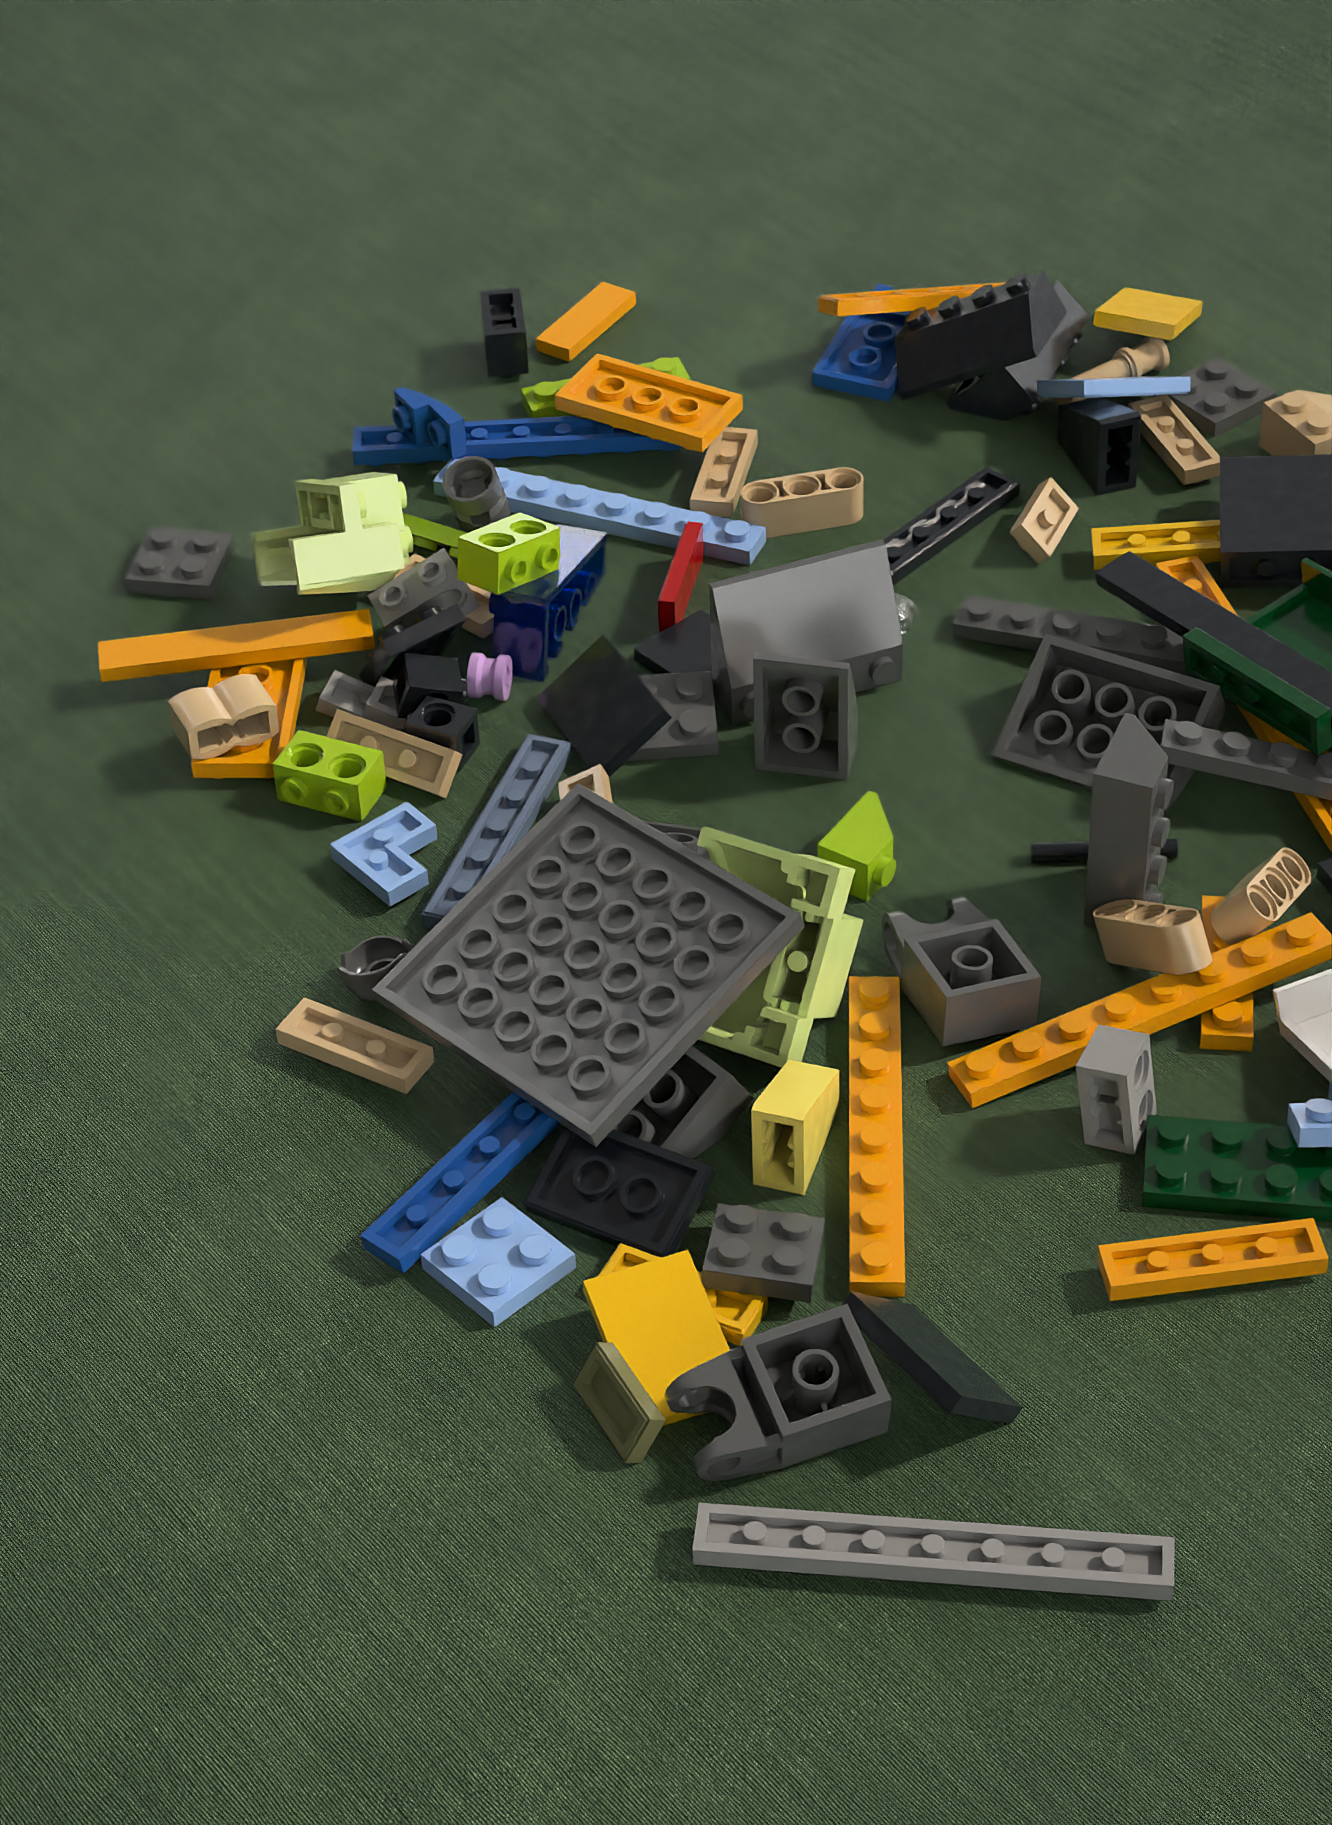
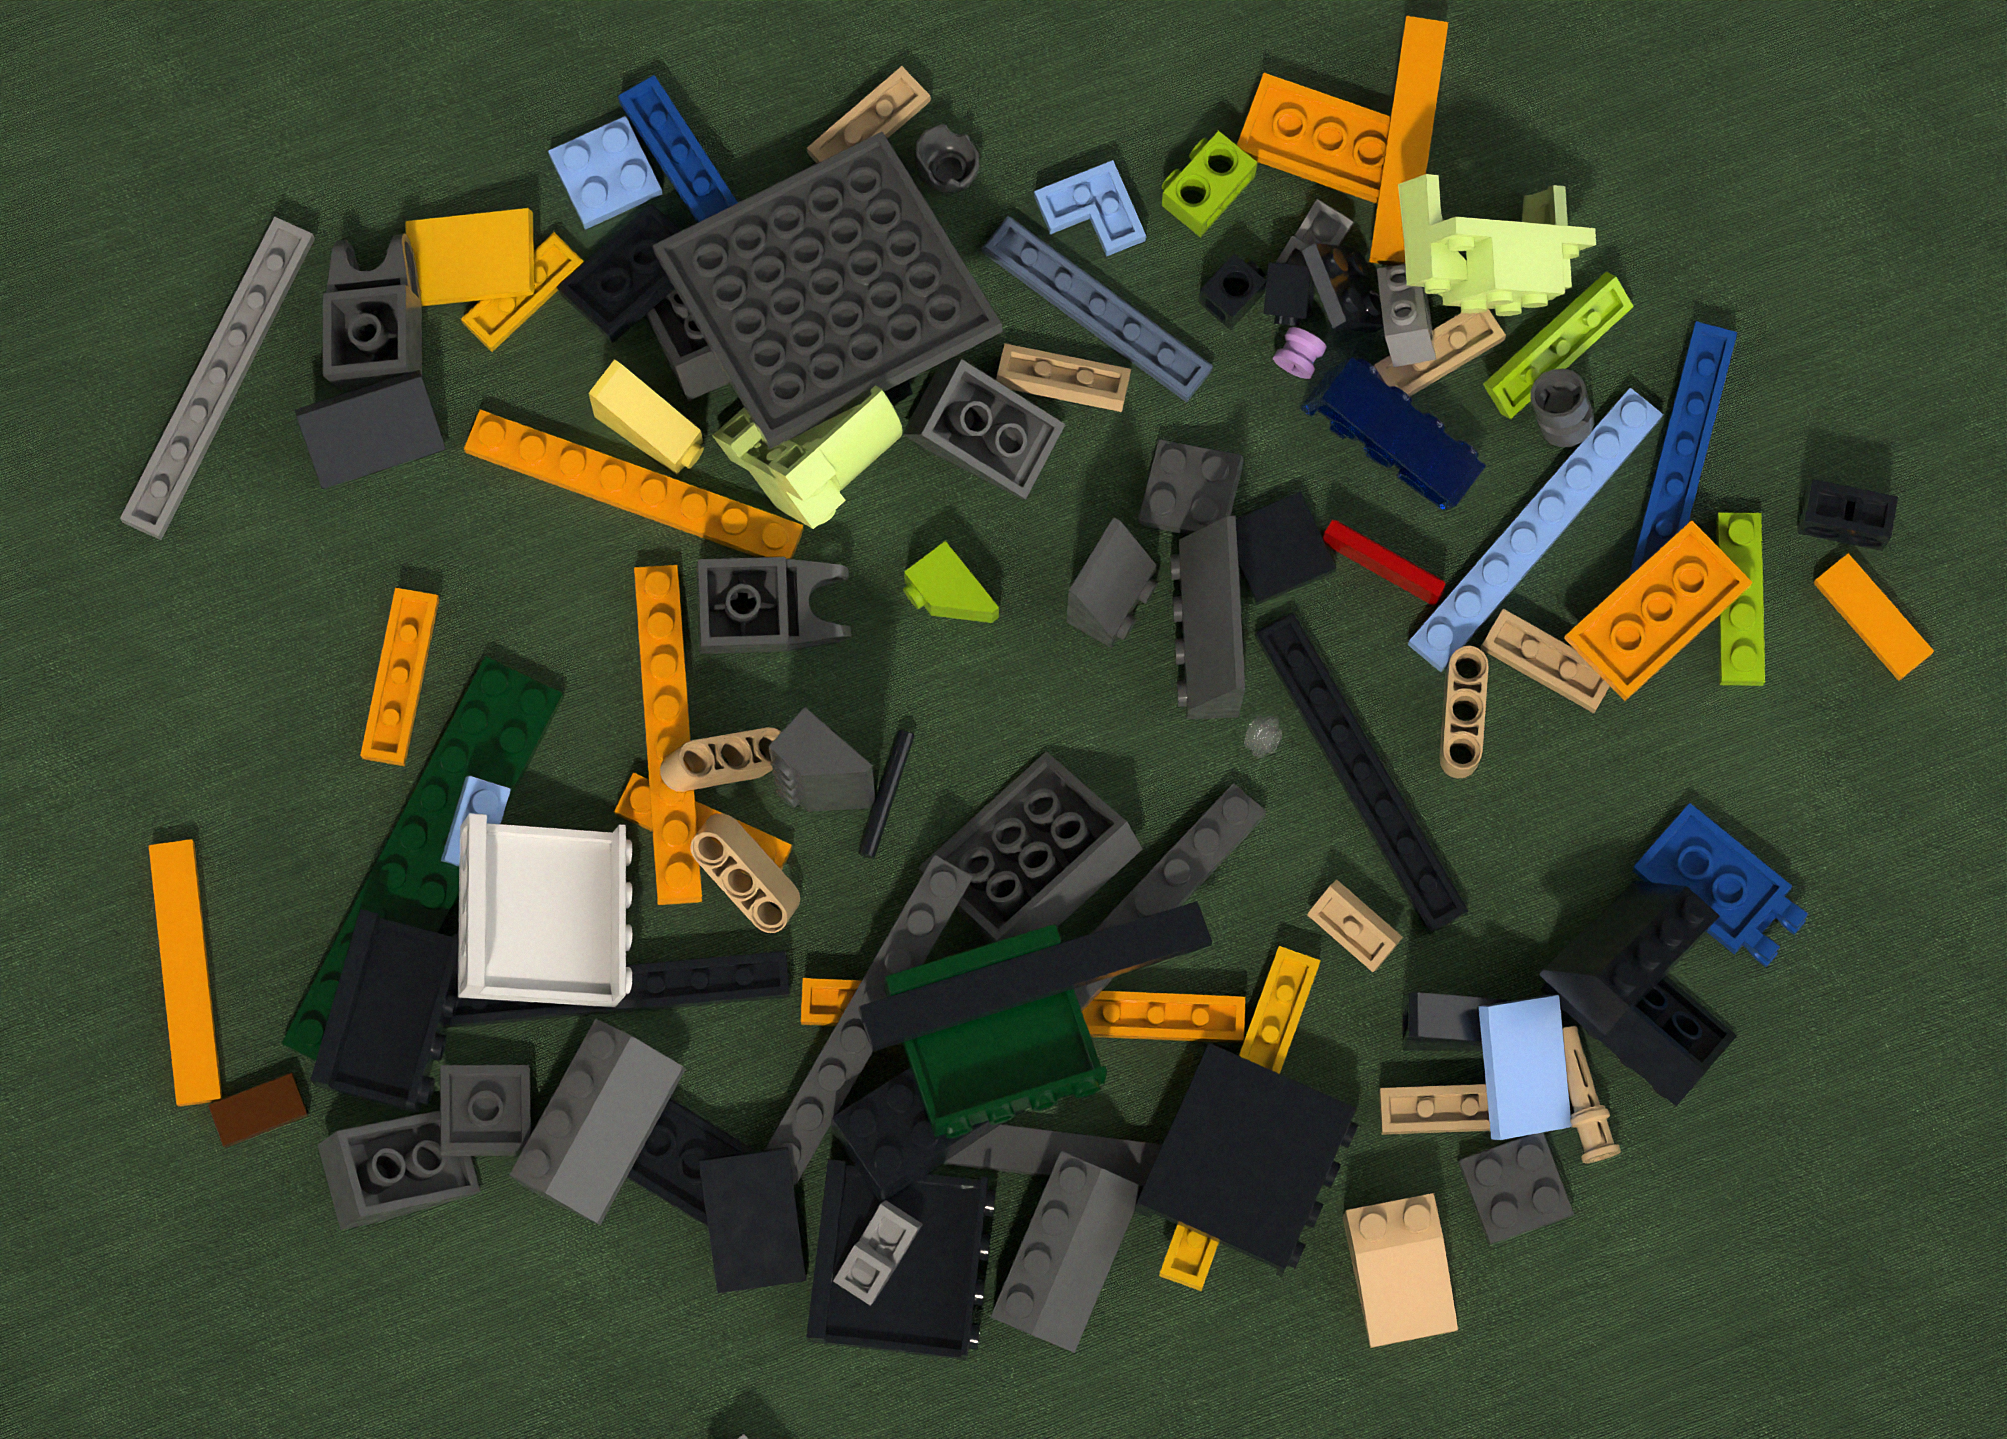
camera: 105 degrees right, 35 degrees up
(180, 563) = (1587, 133): dark grey plate -> none
(223, 716) = (1296, 102): tan brick -> none
(405, 756) = (1222, 239): tan plate -> none
(429, 419) = (1701, 386): blue slope -> none
(508, 553) = (1396, 372): lime brick -> none
(604, 707) = (1207, 431): black tile -> none
(619, 1402) = (425, 209): olive tile -> none
(763, 1252) = (530, 357): dark grey plate -> none
(892, 300) = (1739, 951): light orange tile -> none
(1116, 1088) = (571, 662): light grey brick -> none
(1147, 313) = (1661, 1168): yellow tile -> none

